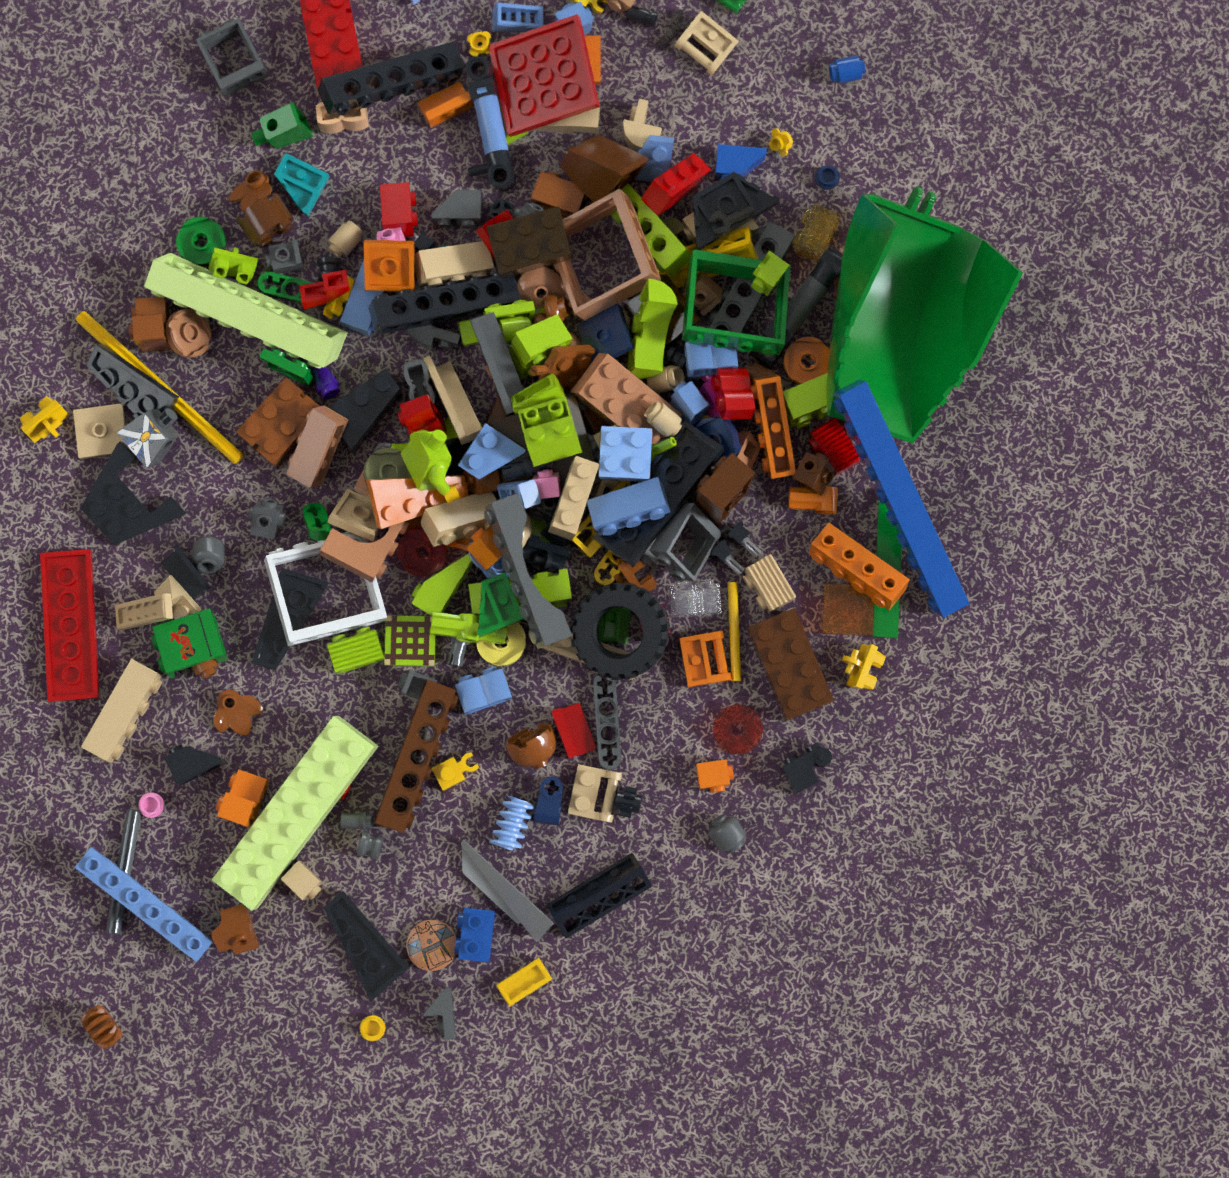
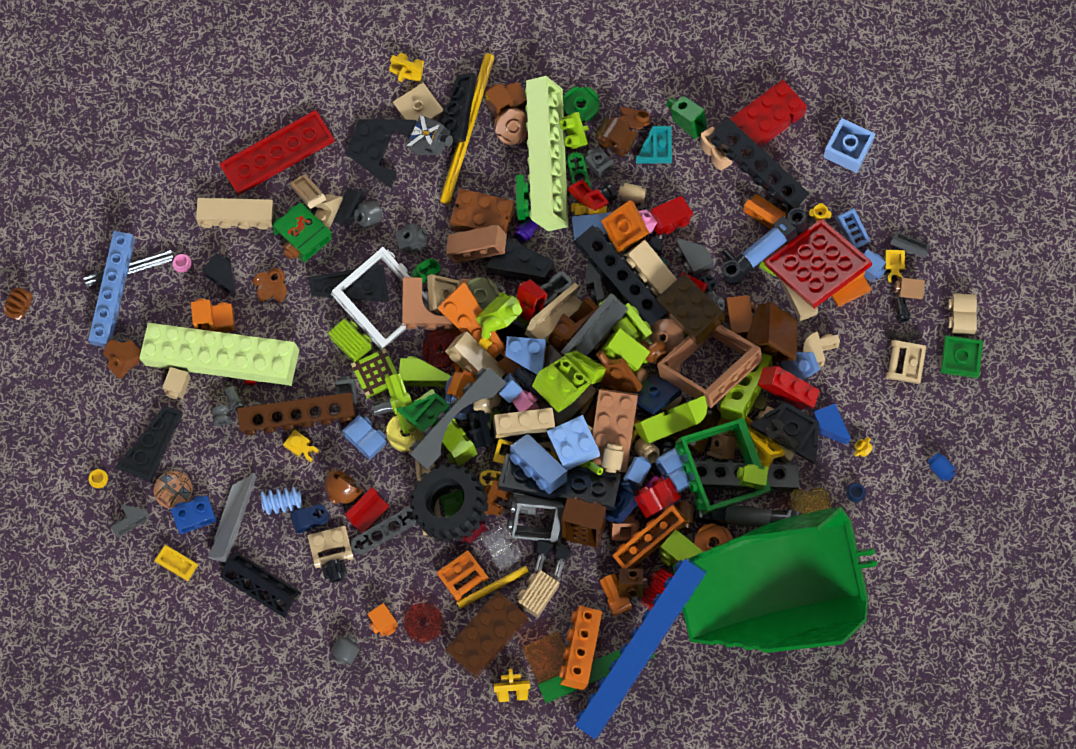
camera: 70 degrees right, 10 degrees down
(242, 77) = (708, 73): dark grey window -> none
(477, 383) = (567, 328): none -> reddish brown panel
(800, 770) = (416, 678): black brick -> none

